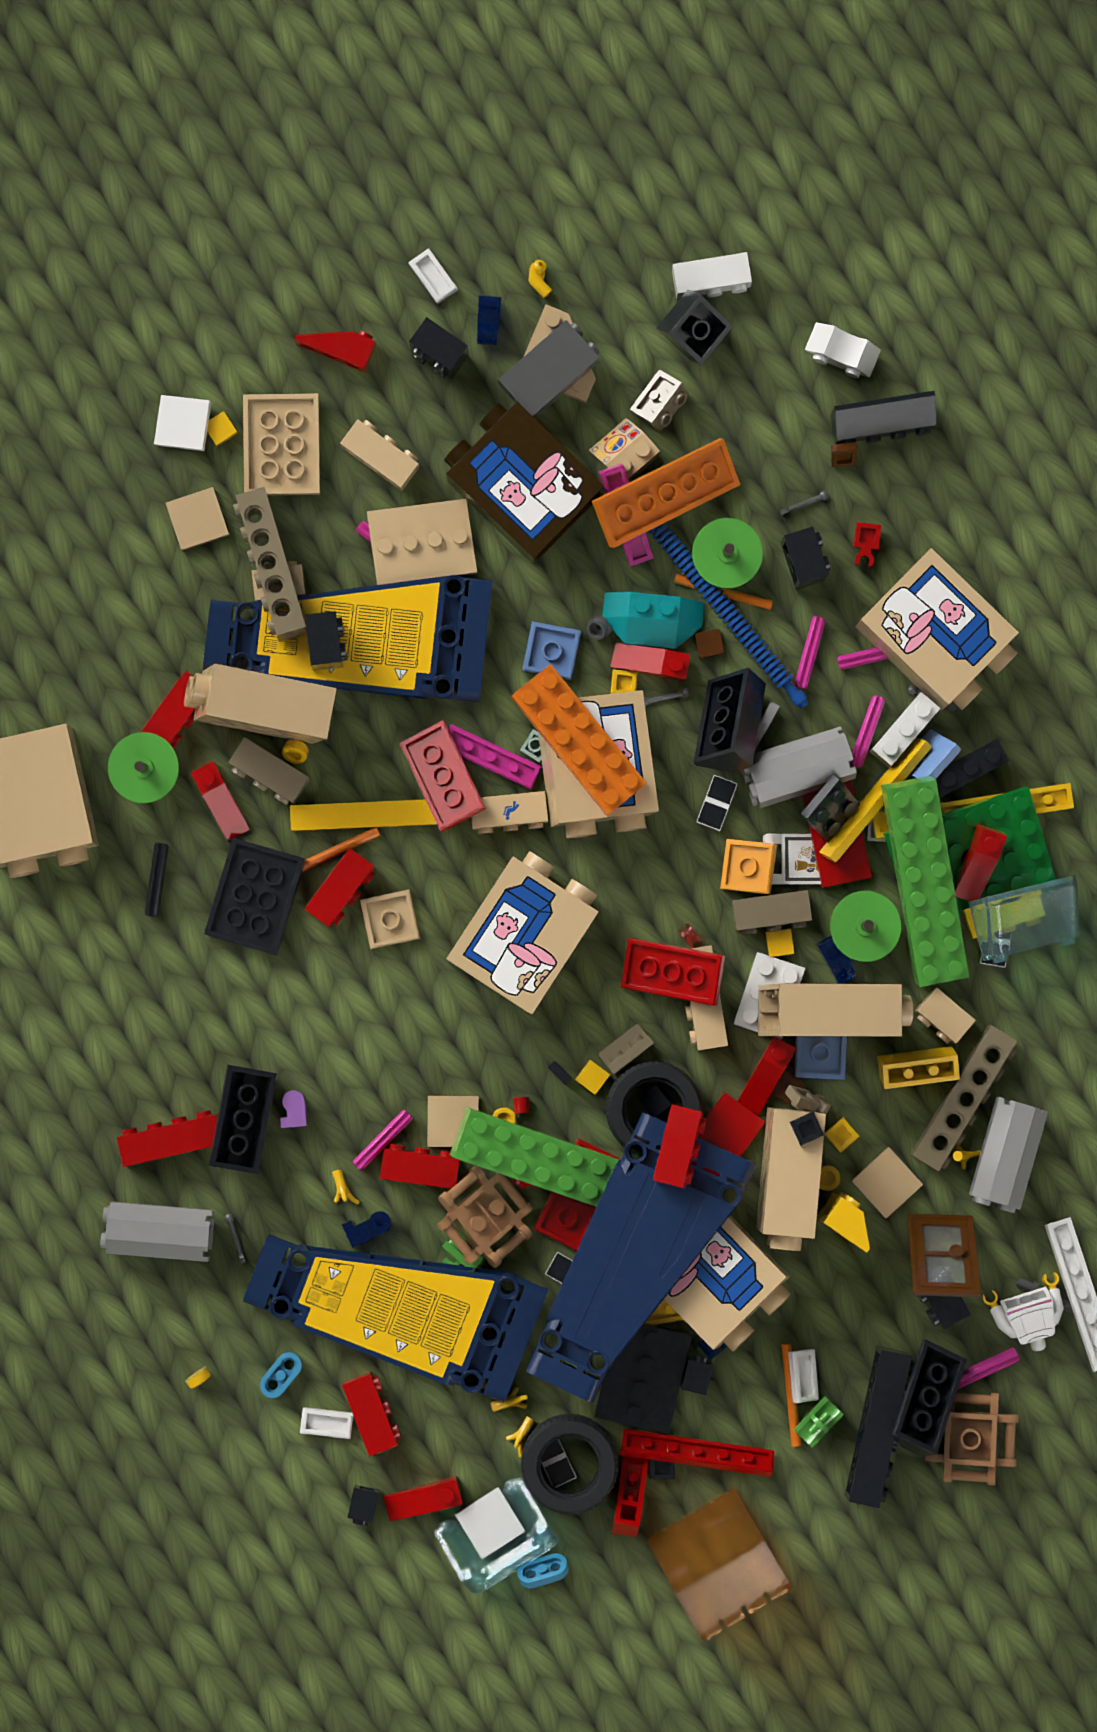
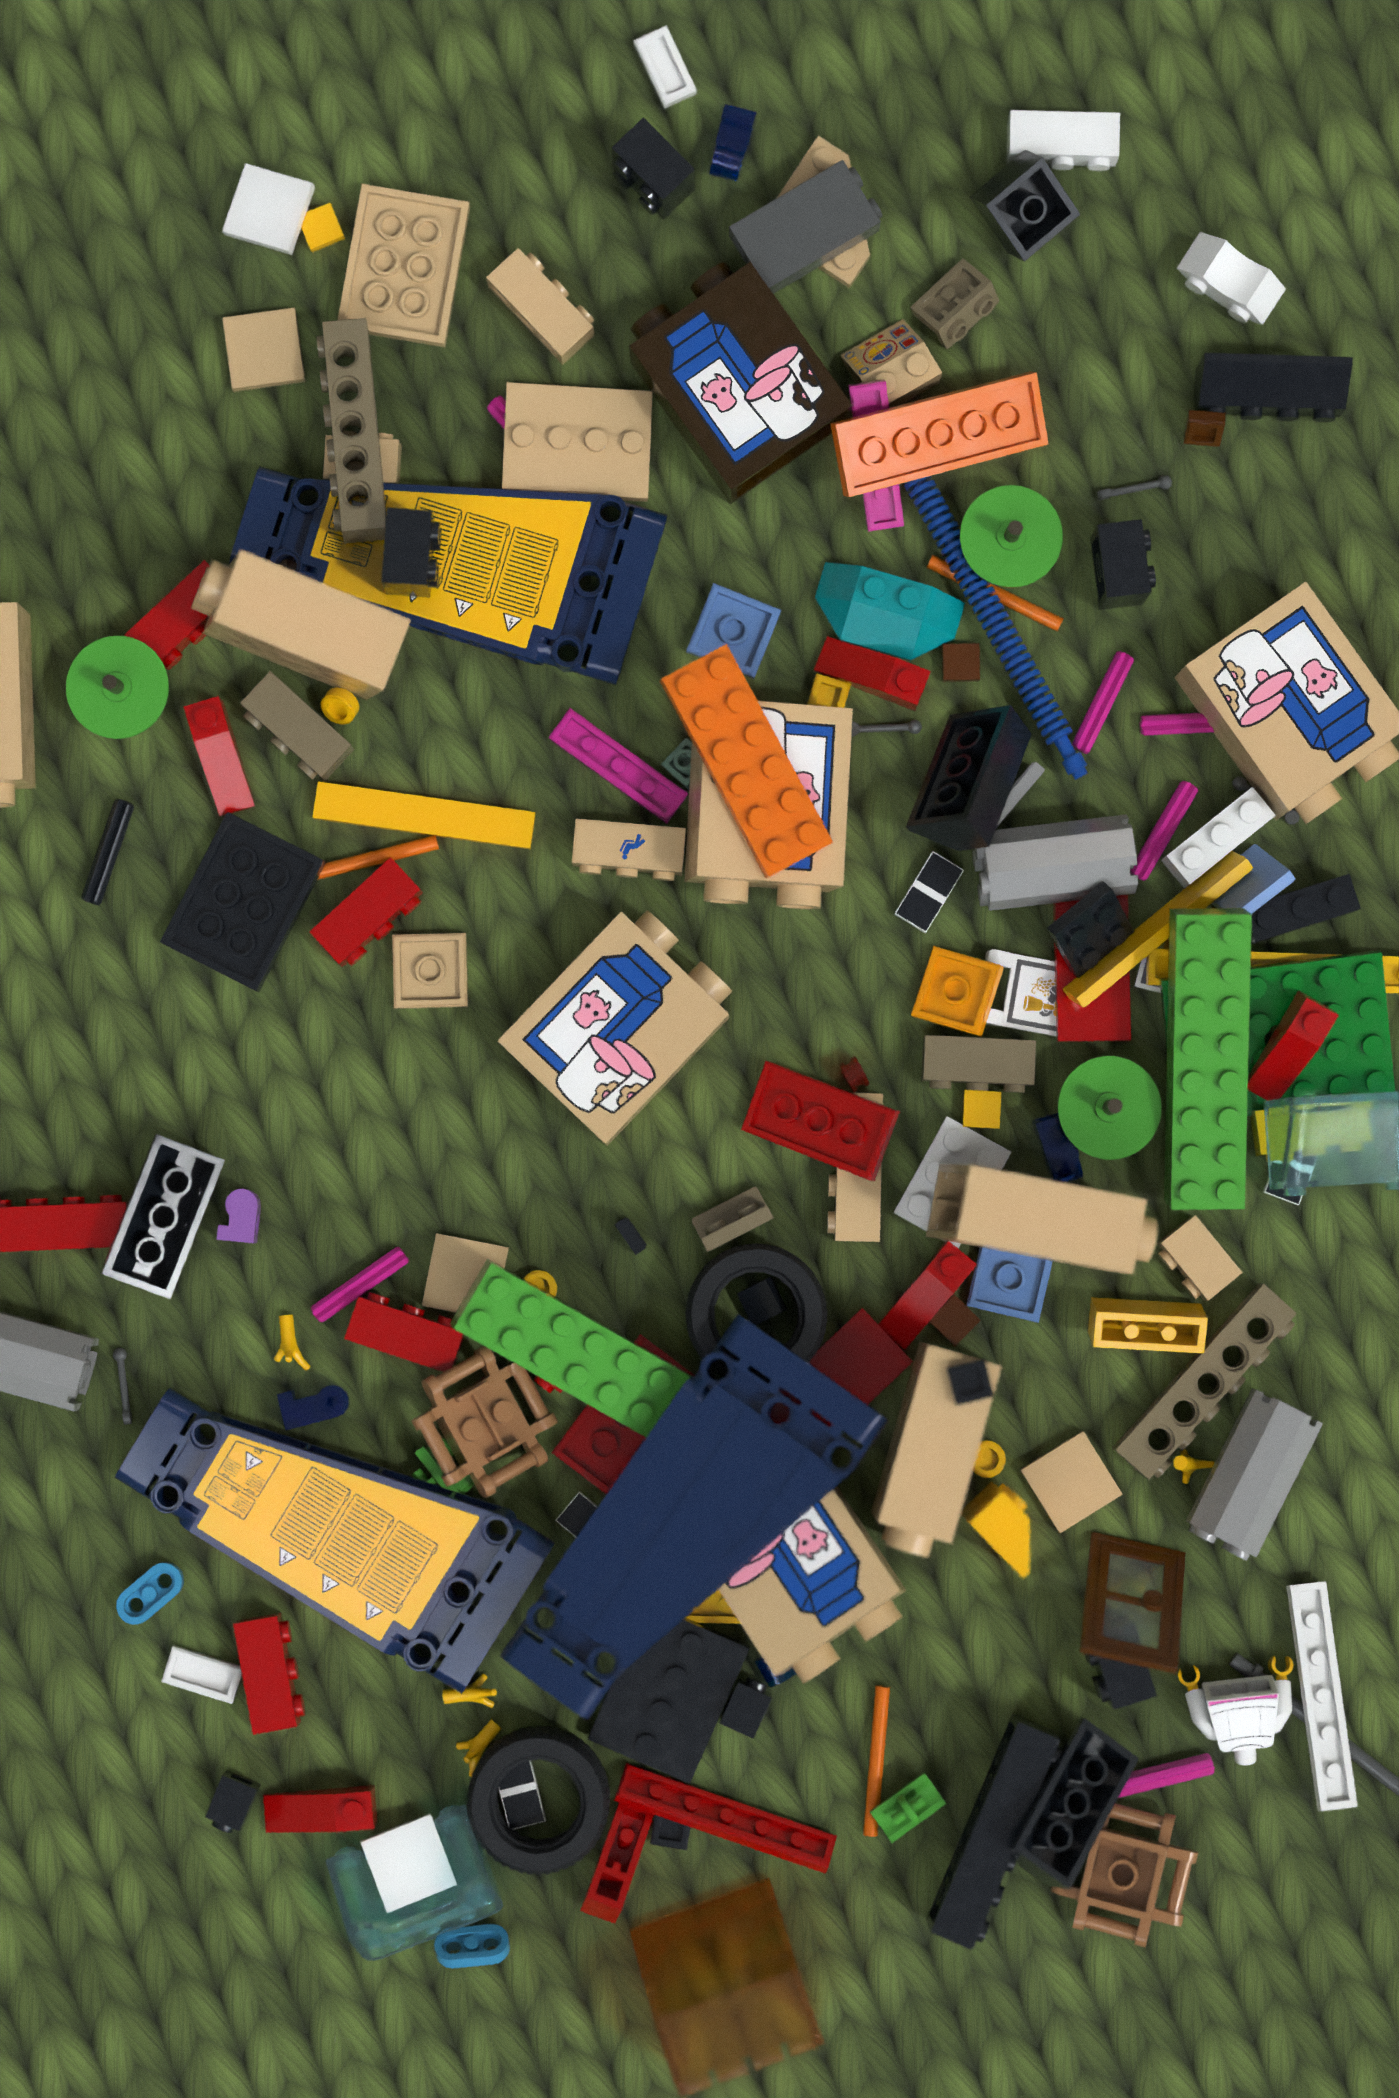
camera: 15 degrees right, 0 degrees up
(198, 1377) = (31, 1575): yellow tile -> none
(343, 347) = (516, 142): red slope -> none
(442, 776) = (543, 779): tile -> none
(521, 1105) = (568, 1271): red piece -> none
(536, 278) = (813, 95): yellow arm -> none
(592, 1077) = (677, 1250): yellow tile -> none
(593, 629) = (800, 614): dark grey plate -> none
(679, 1146) = (781, 1373): red brick -> none
(803, 1375) = (899, 1737): white tile -> none
(804, 1099) = (974, 1340): dark tan plate -> none
(841, 1134) = (1018, 1401): yellow tile -> none
(866, 539) = (1215, 556): red plate -> none

